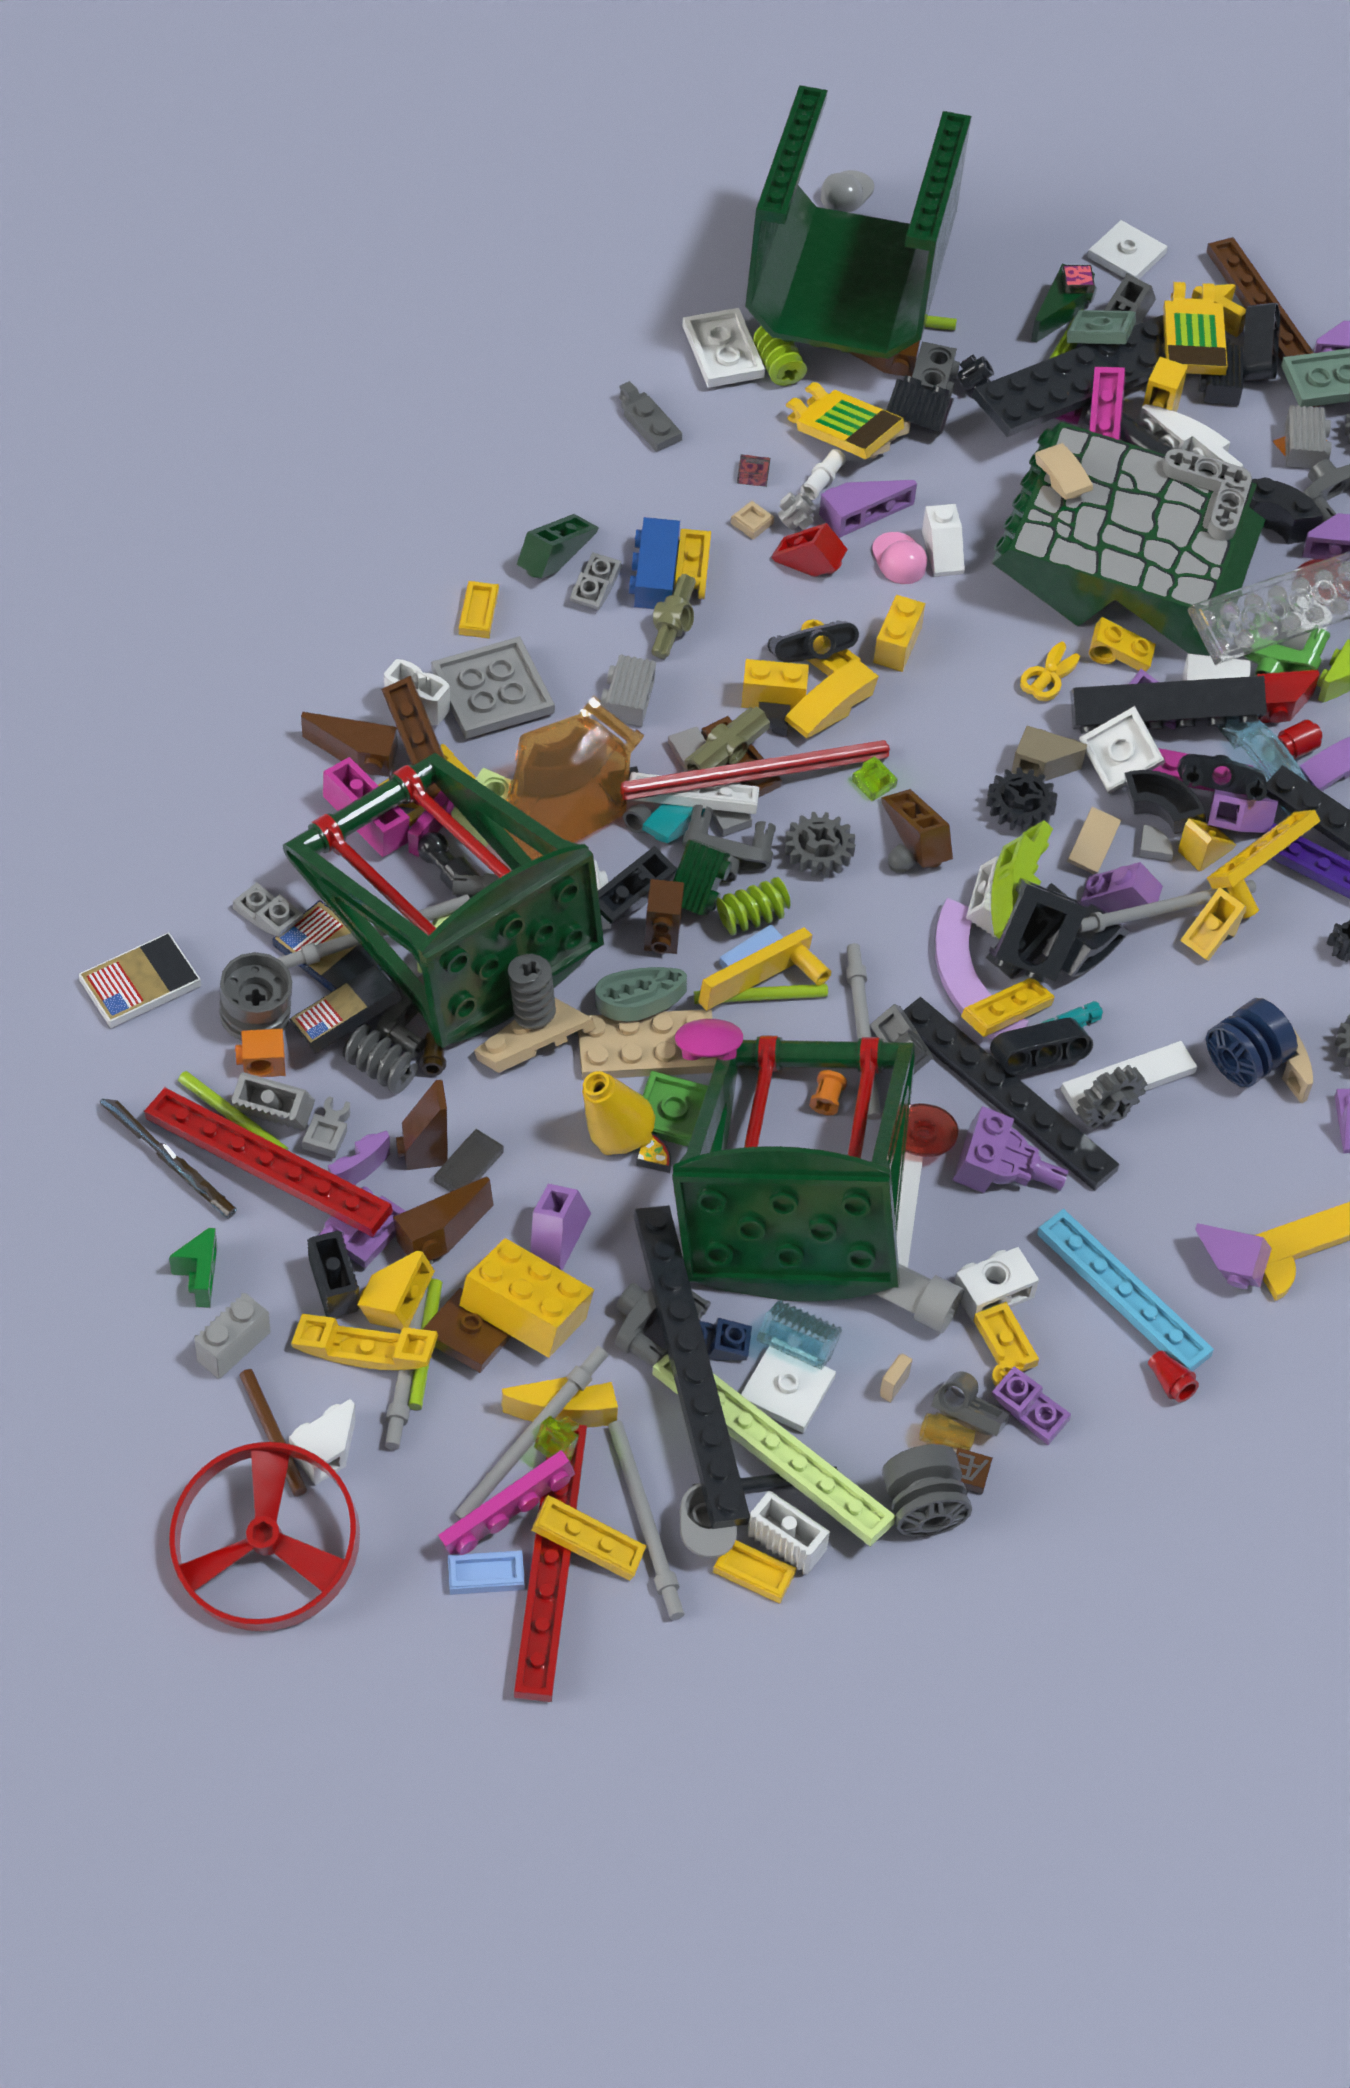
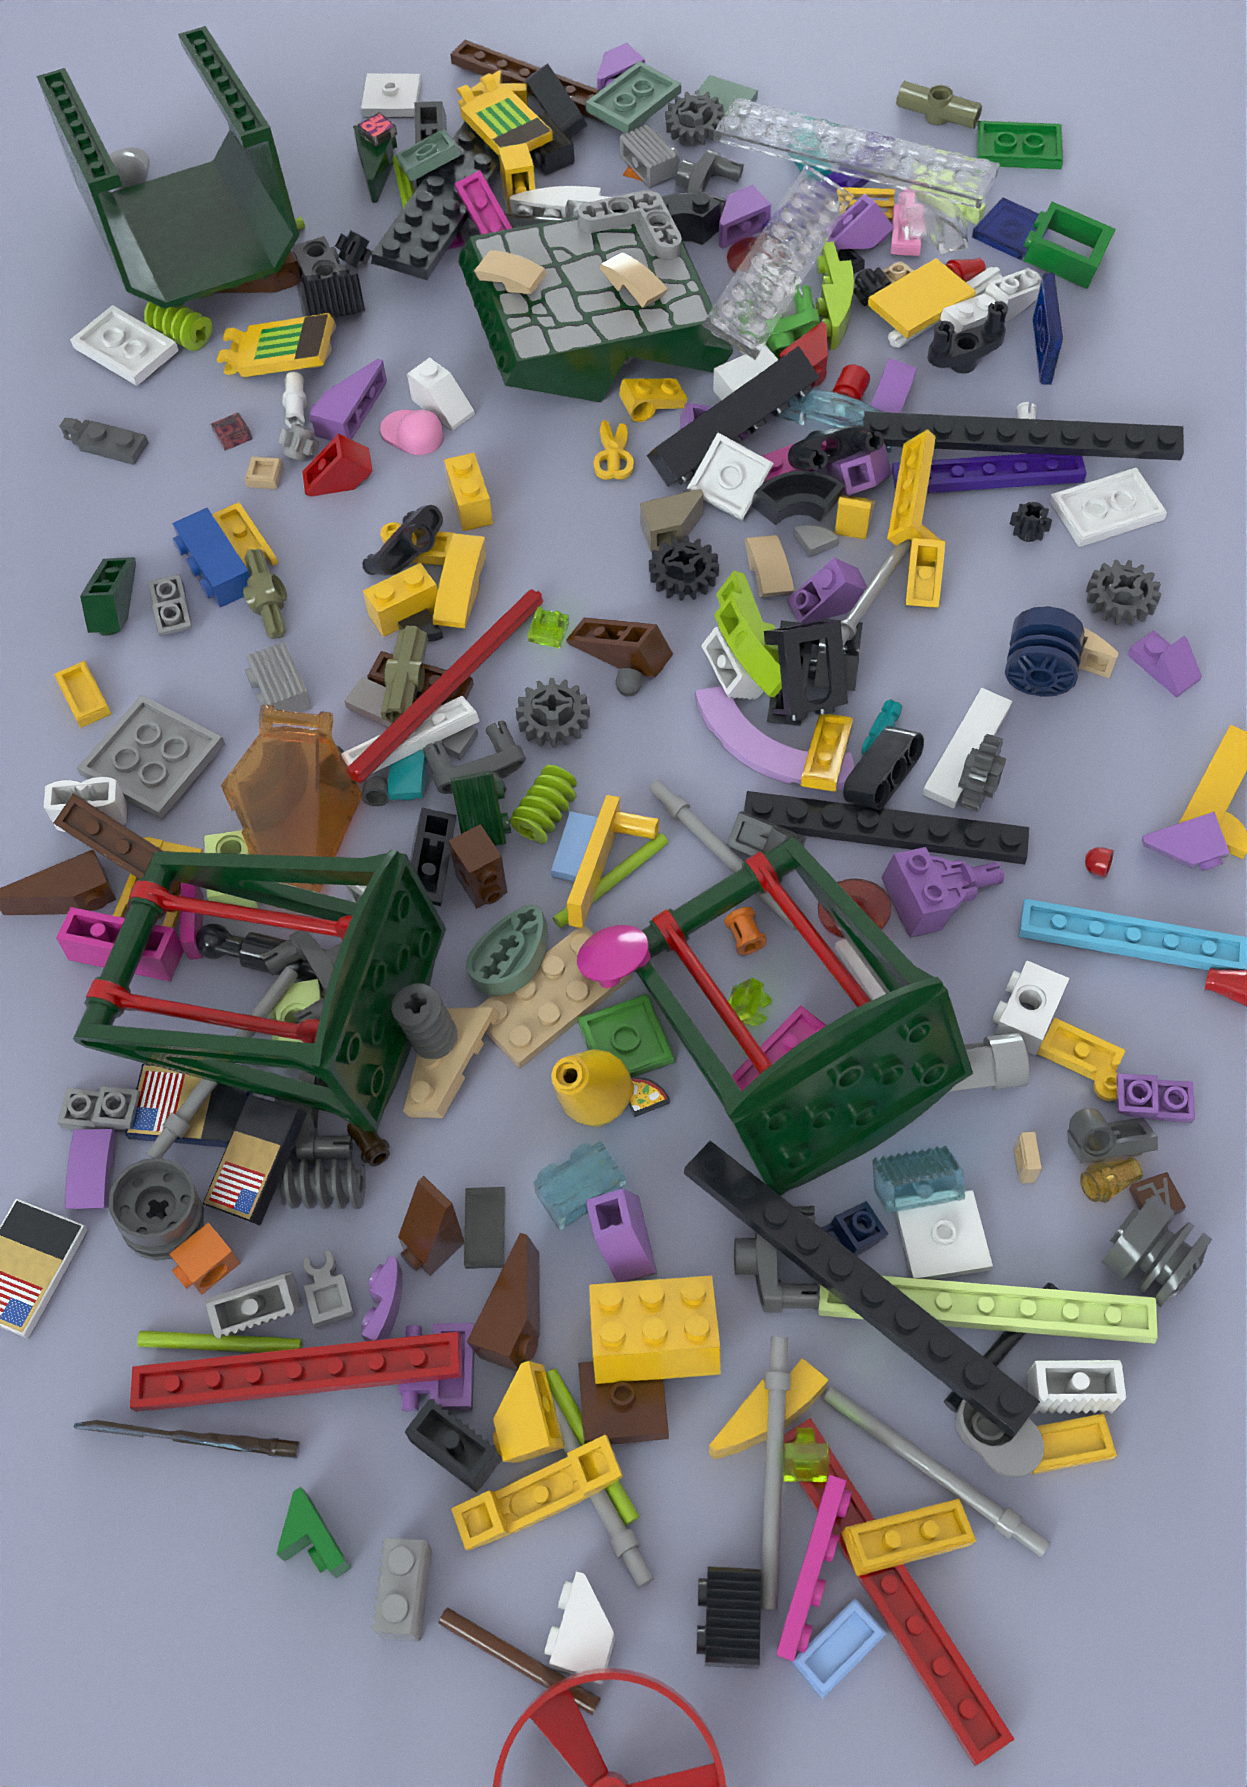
camera: 30 degrees left, 5 degrees up
(237, 937) = (88, 1168): none -> medium lavender slope
(428, 1501) = (732, 1617): none -> black brick
(565, 1170) = (584, 1176): none -> clear light blue brick
(787, 1137) = (746, 999): none -> clear neon green tile
(1153, 1225) = (1099, 861): none -> red hinge
(1165, 537) = (638, 279): none -> tan slope

